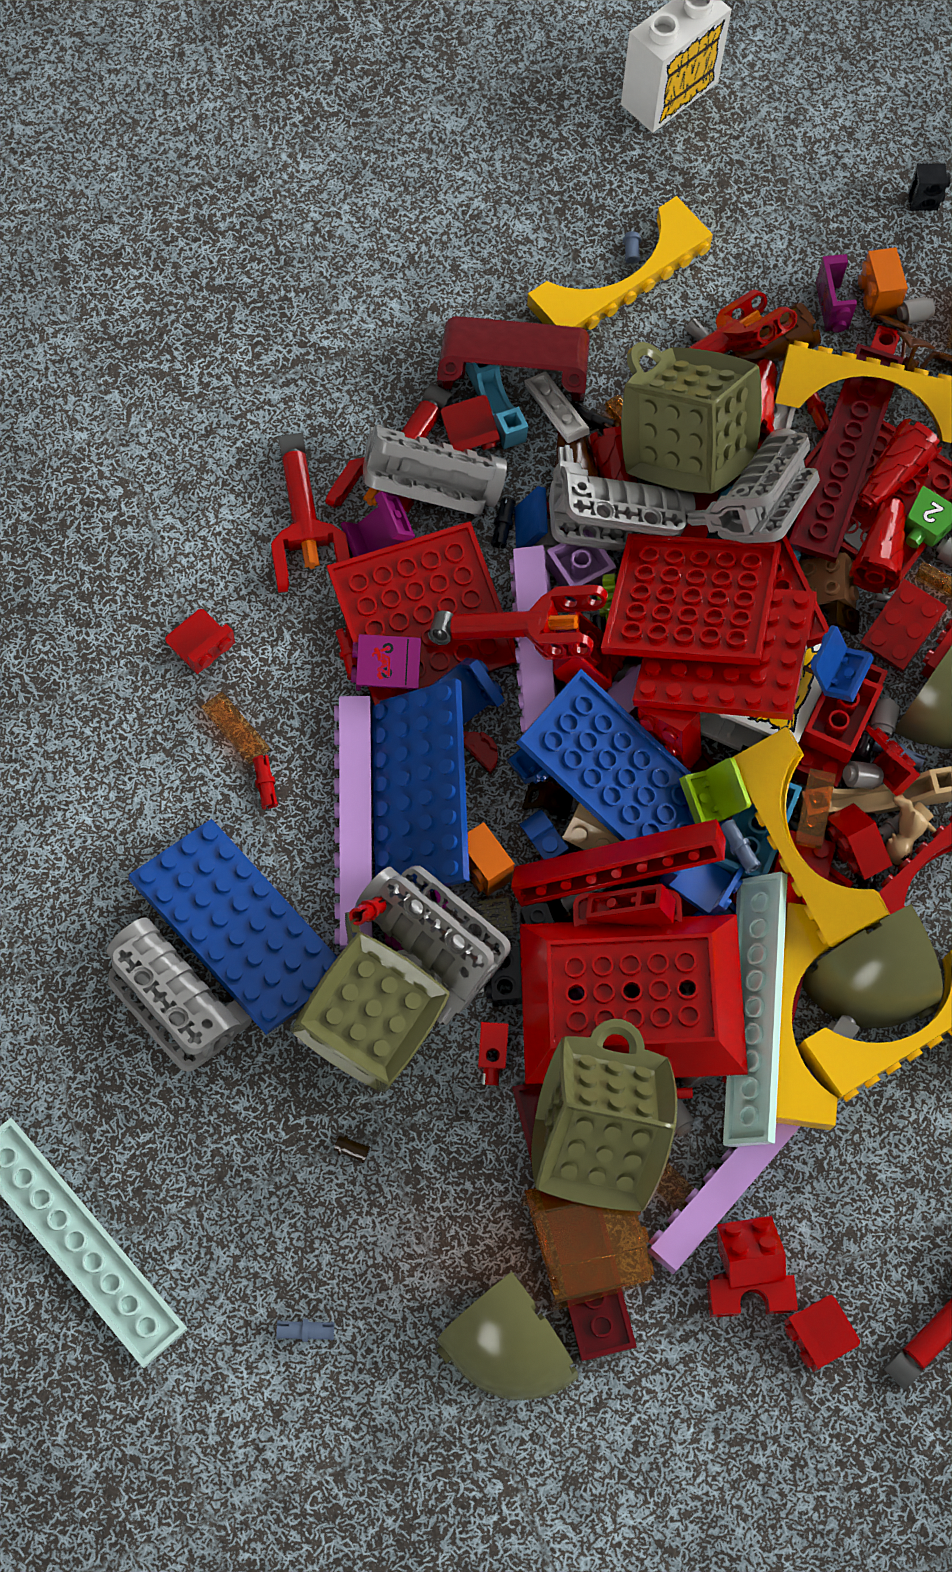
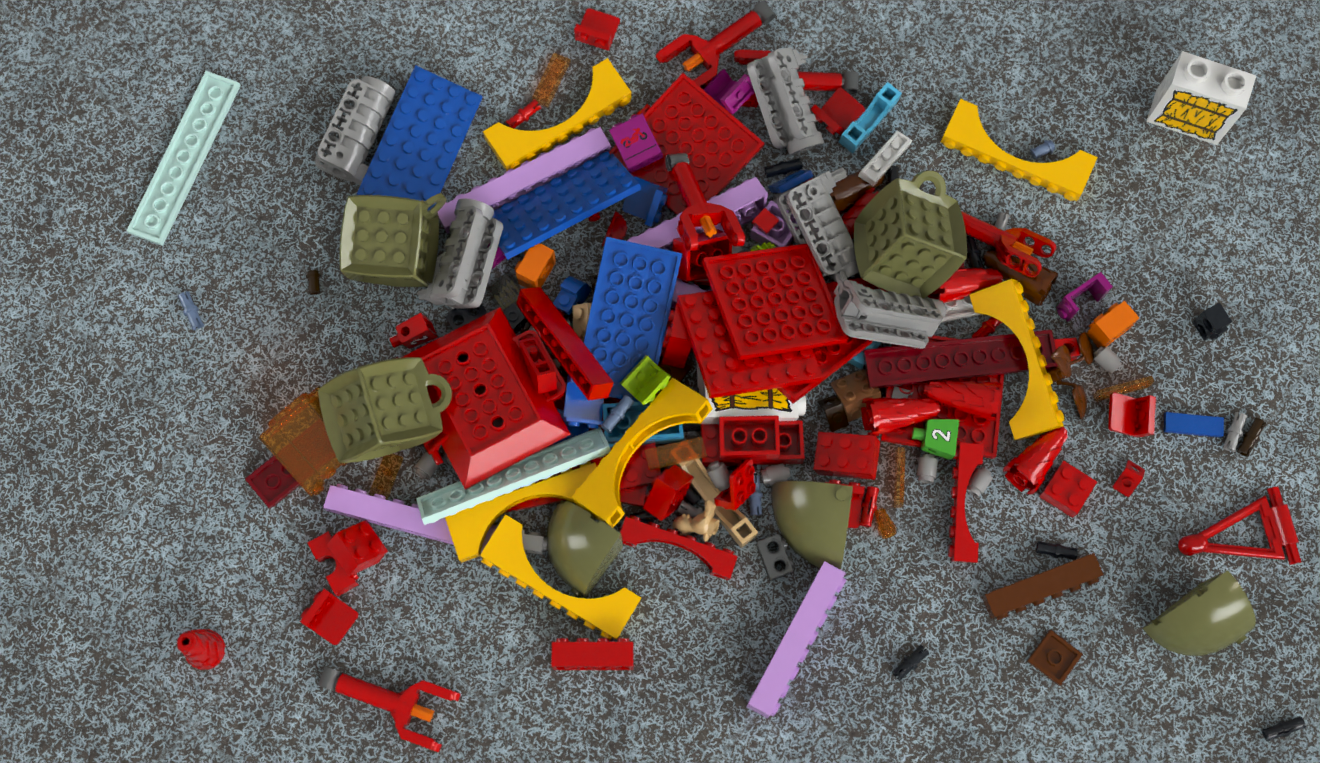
camera: 65 degrees right, 5 degrees up
(304, 810) = (519, 146): none -> yellow arch
(367, 910) = (446, 204): red pin -> none
(507, 1346) = (232, 428): olive brick -> none
(516, 346) = (910, 110): dark red windscreen -> none
(572, 567) = (765, 221): none -> red tile
(788, 1521) = (202, 648): none -> red cone
(838, 667) = (772, 414): blue bracket -> none

